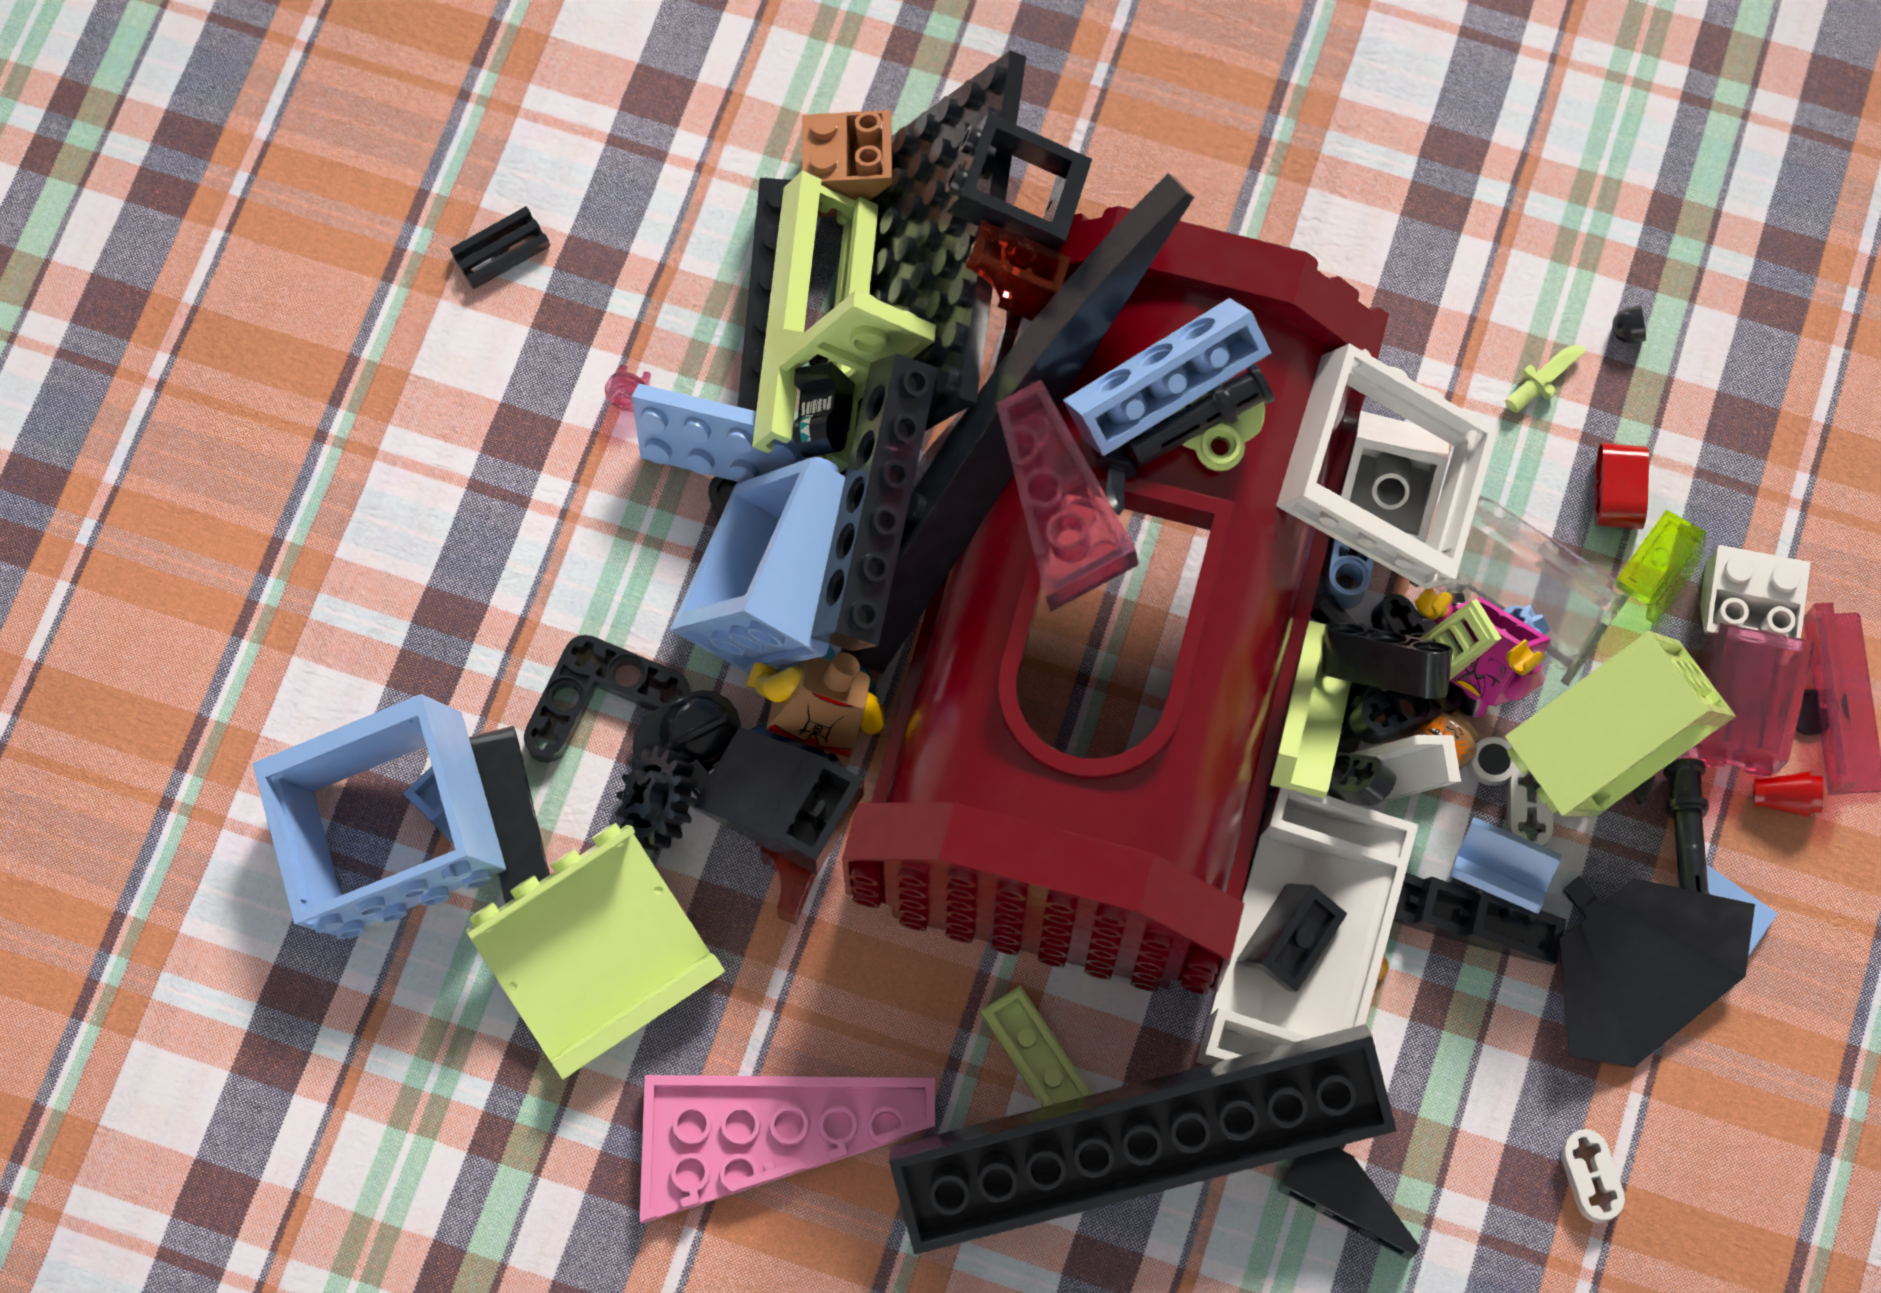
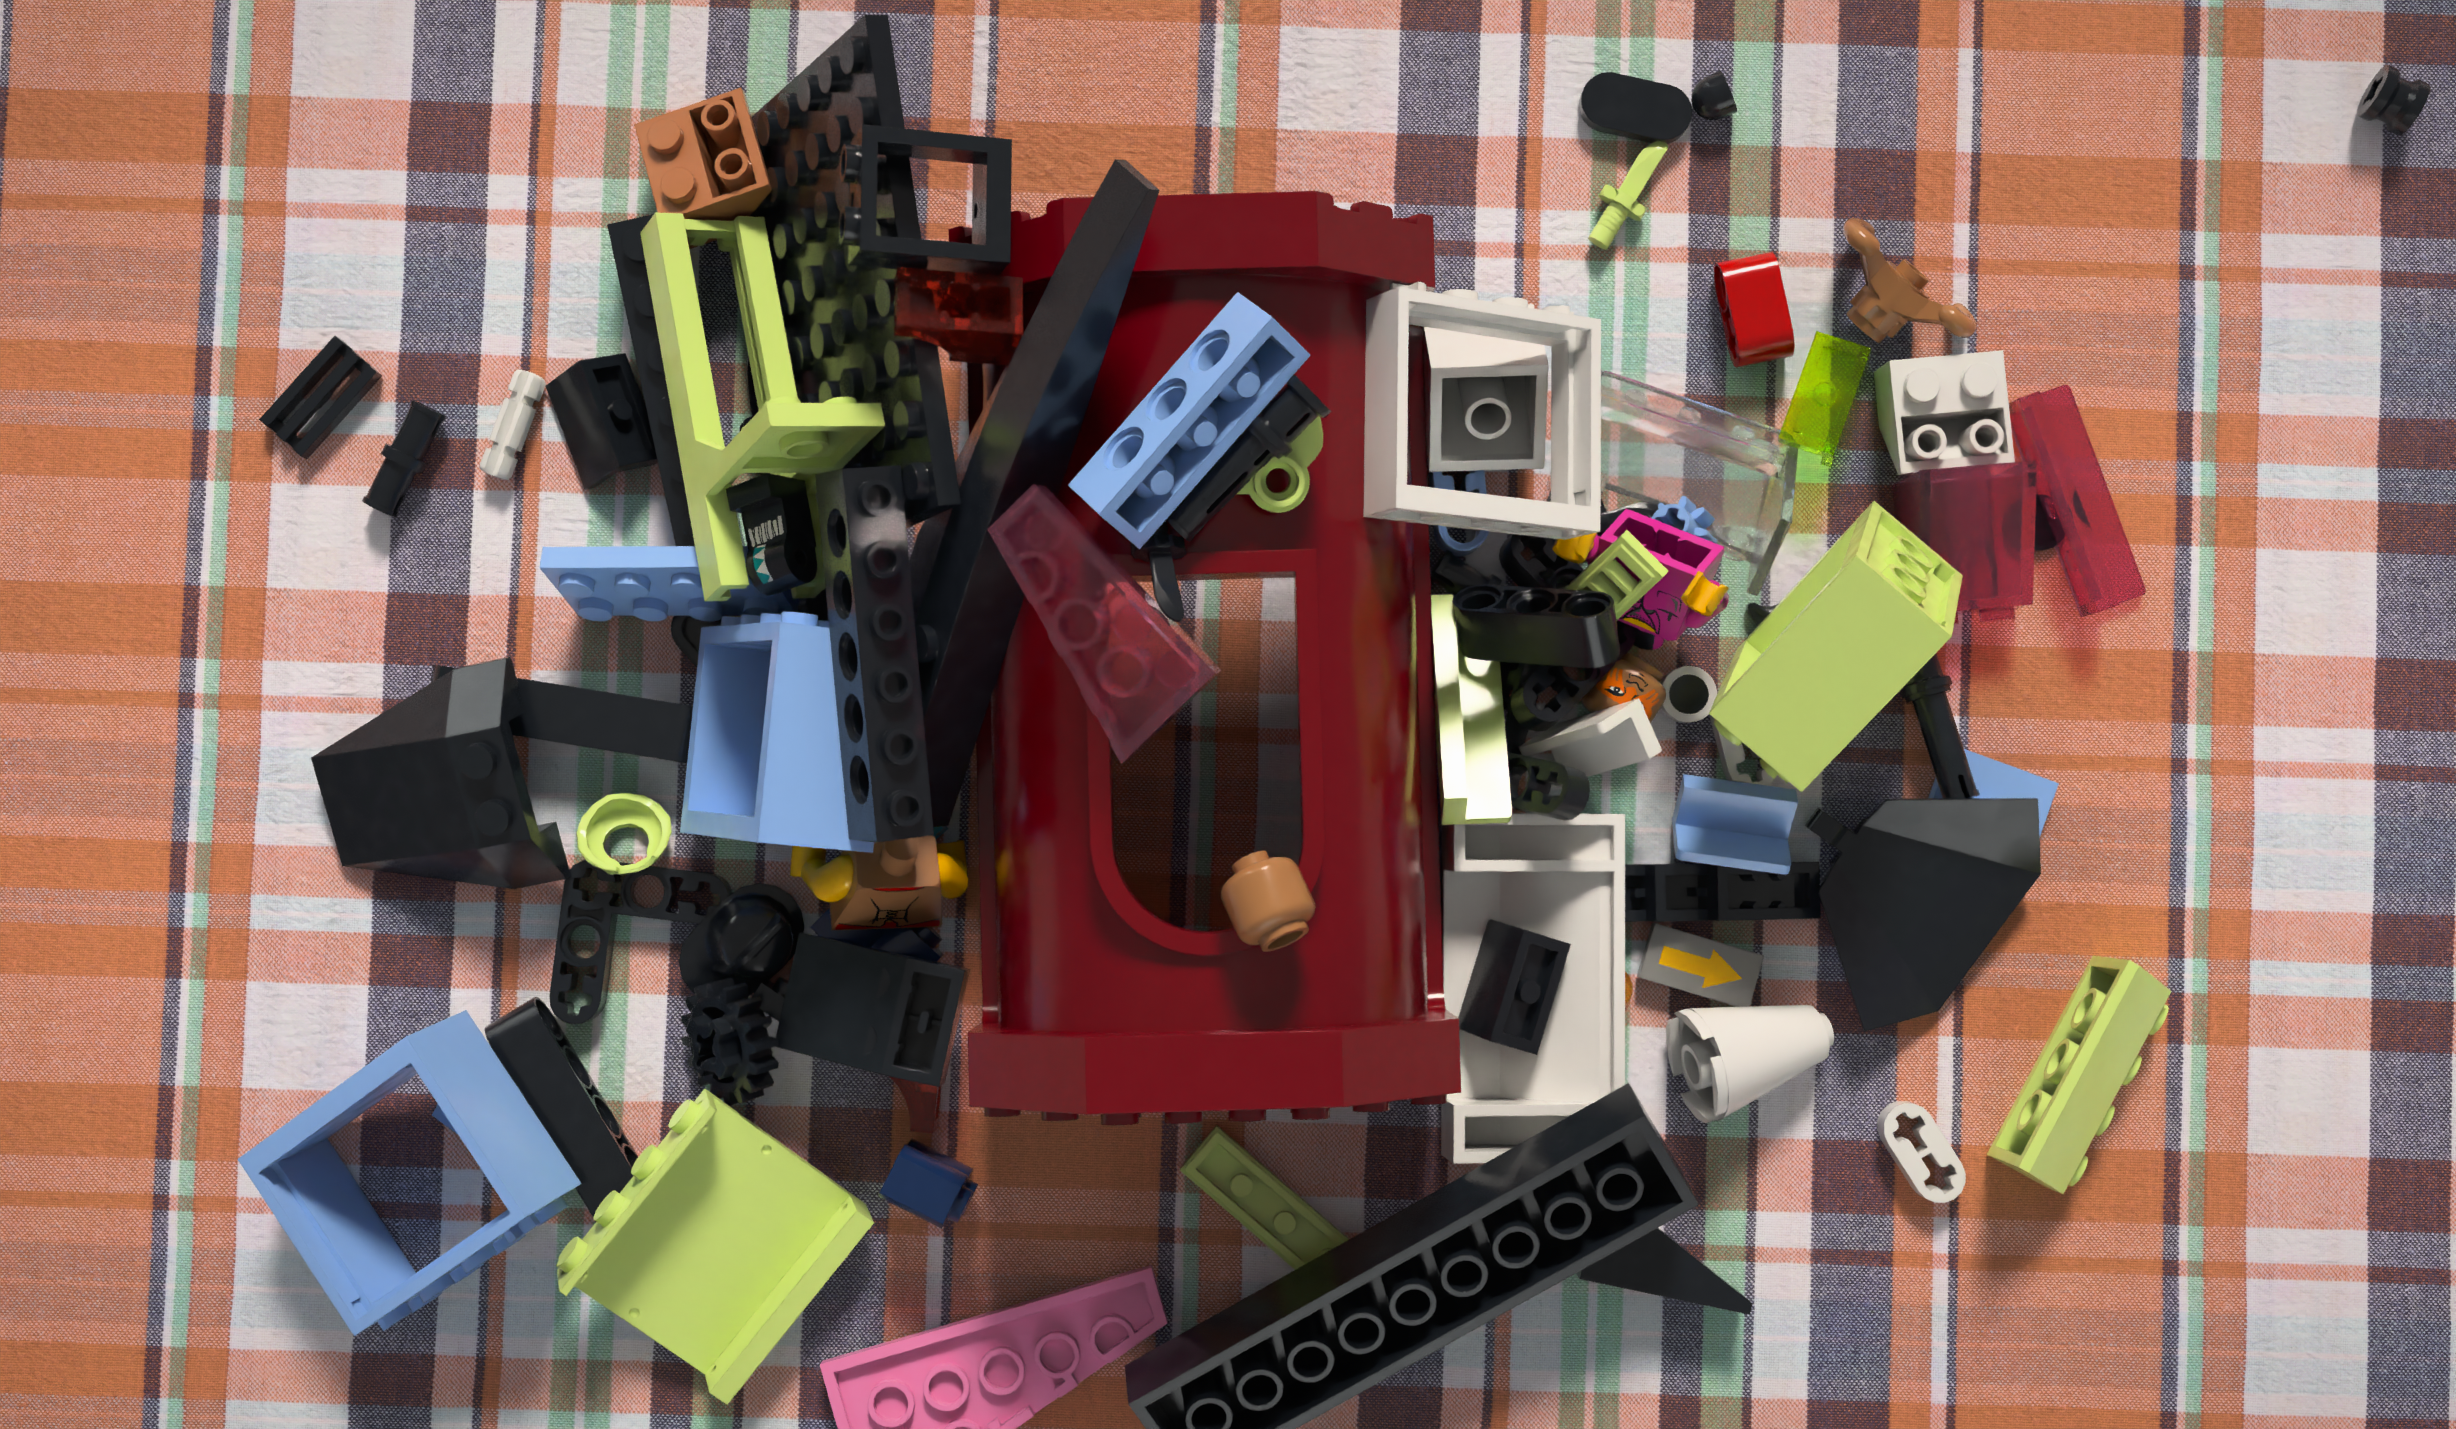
camera: 20 degrees left, 15 degrees up
(497, 547) = (441, 787): none -> black wedge
(548, 306) = (404, 458): none -> black pin
(604, 522) = (600, 719): none -> black beam
(621, 387) = (528, 538): clear pink plate -> none
(627, 610) = (619, 812): none -> yellowish green piece
(637, 306) = (512, 424): none -> white axle
(707, 319) = (603, 418): none -> black panel
(778, 952) = (929, 1184): none -> dark blue brick
(1125, 737) = (1268, 901): none -> medium nougat head
(1448, 975) = (1700, 966): none -> light grey tile
(1465, 1045) = (1743, 1052): none -> white cone
(1566, 317) = (1635, 108): none -> black tile
(1736, 502) = (1895, 292): none -> medium nougat piece
(1742, 1145) = (2081, 1072): none -> yellowish green slope
(1790, 793) = (2043, 633): red cone -> none

